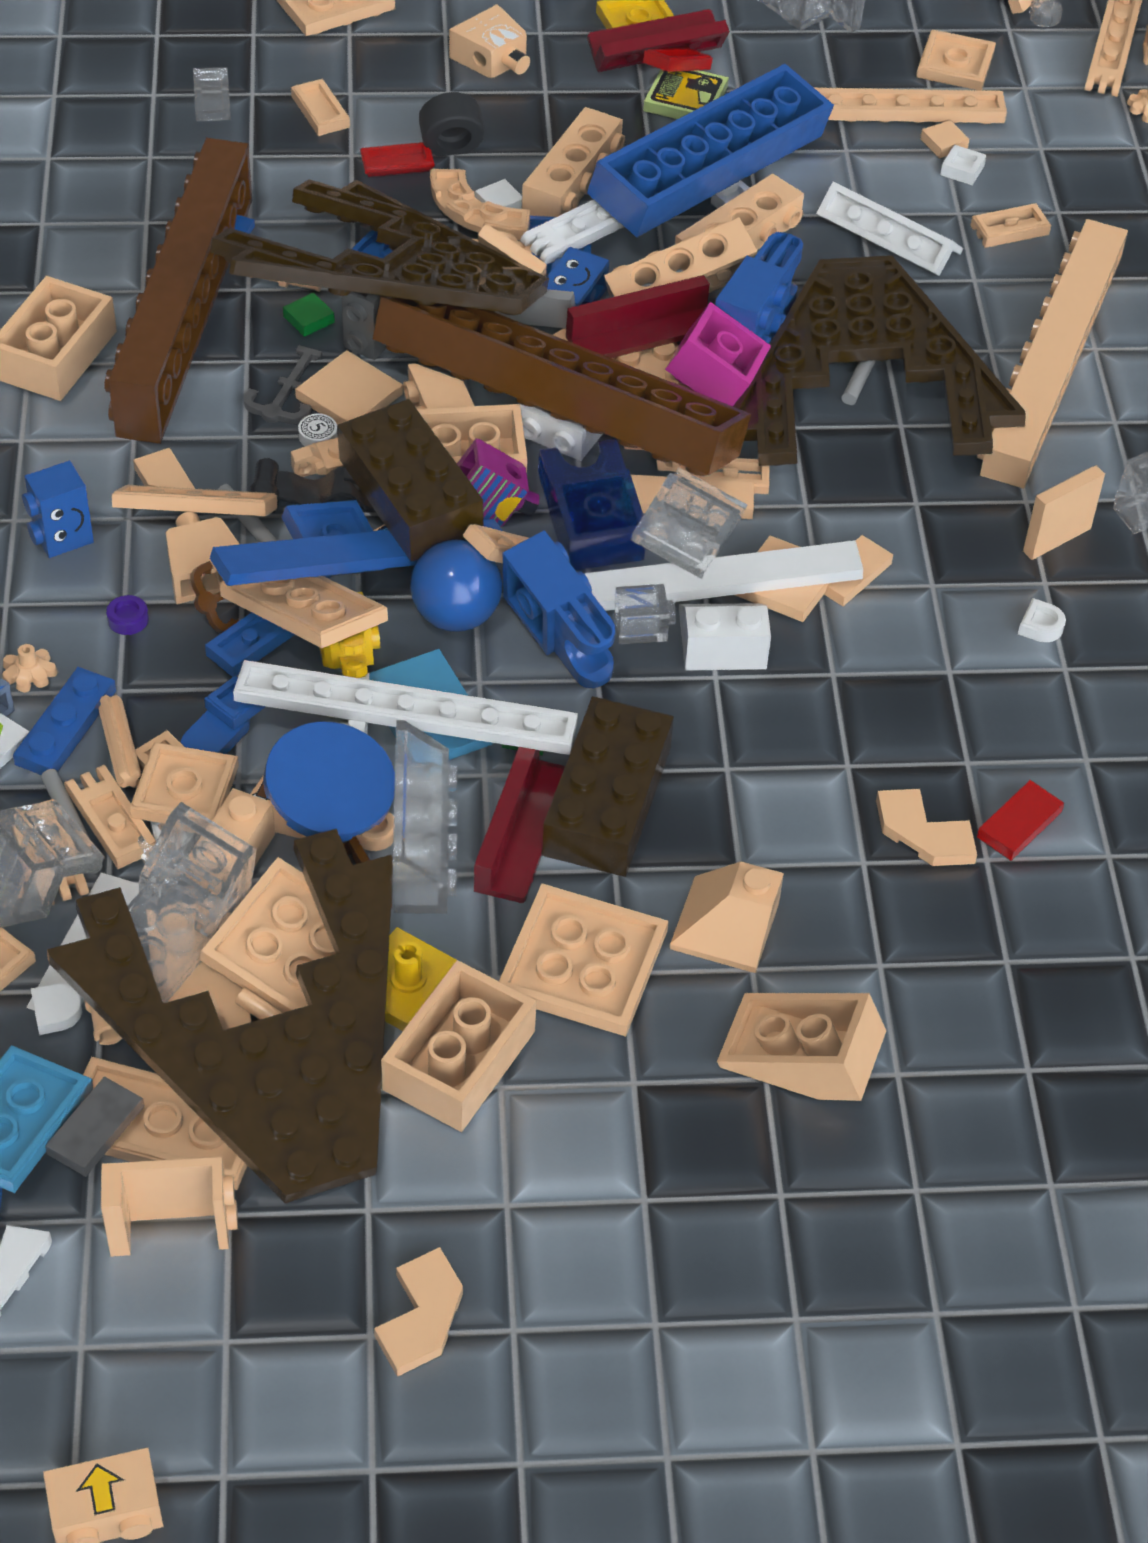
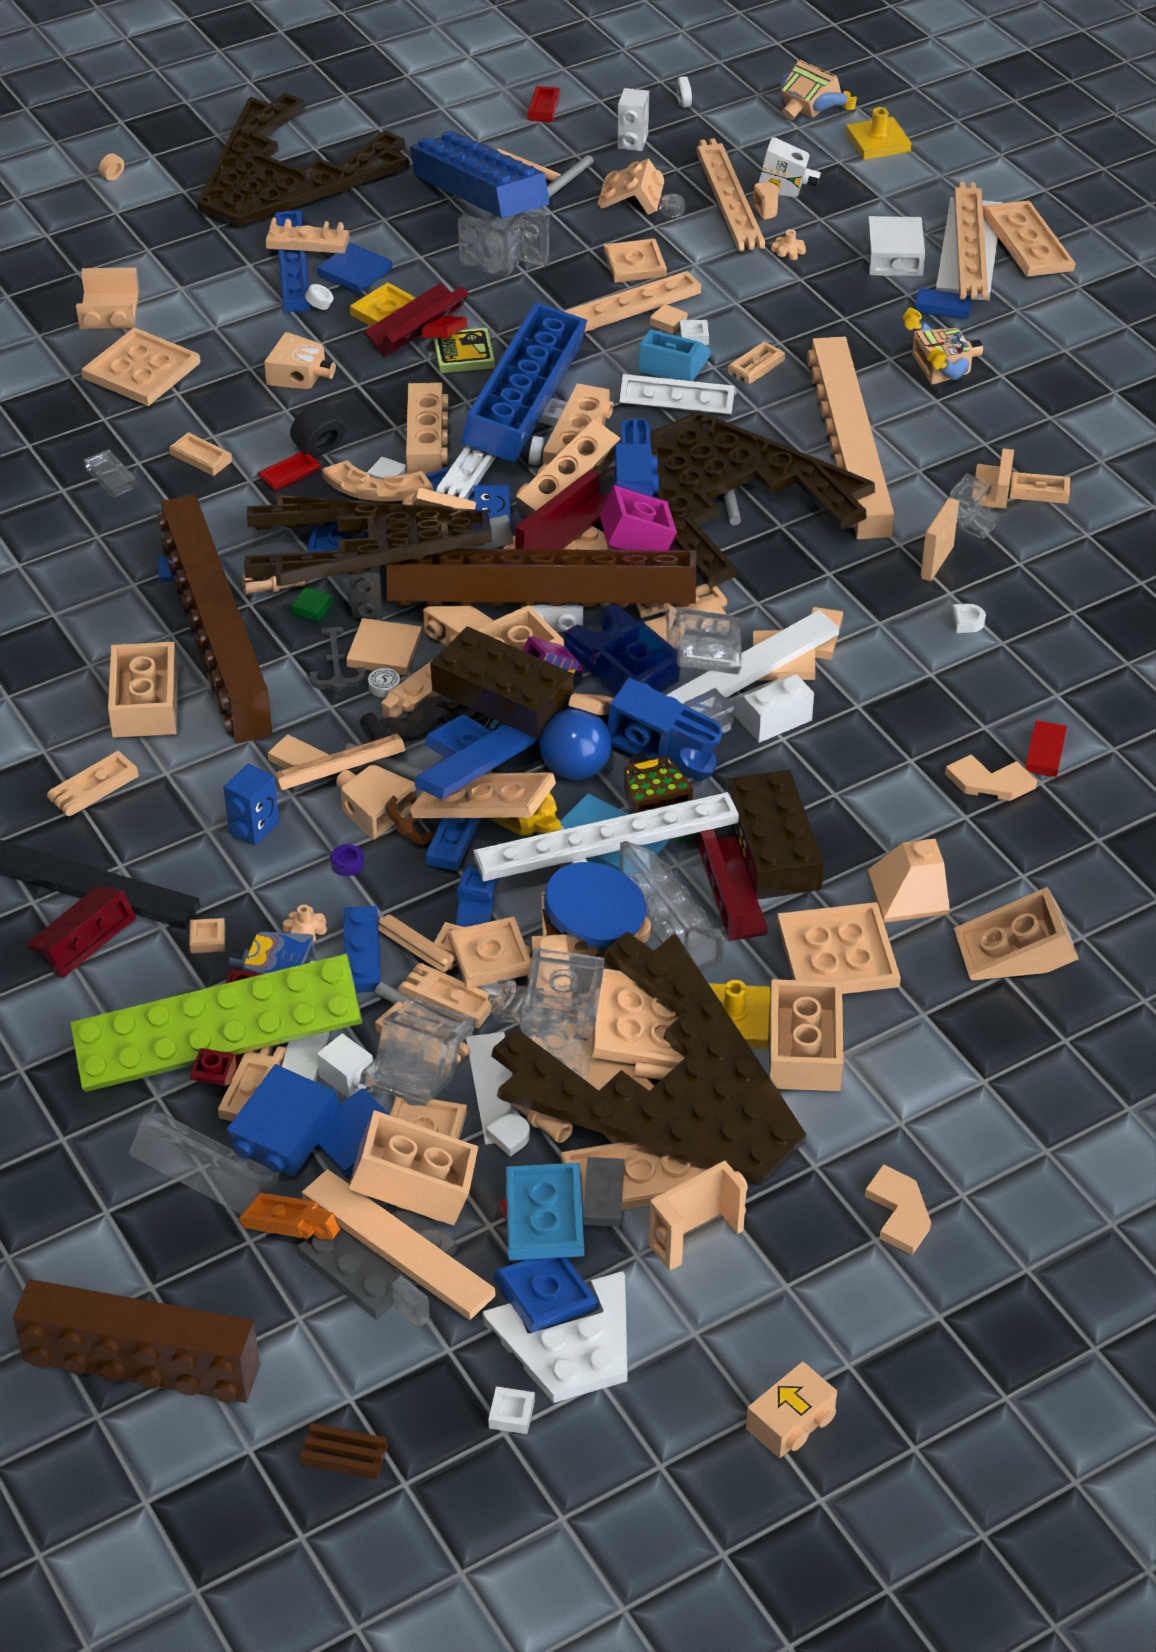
camera: 25 degrees left, 5 degrees down
(514, 669) = (654, 783): none -> reddish brown torso
(676, 226) = (536, 450): none -> white tile
(909, 182) = (671, 356): none -> dark azure slope

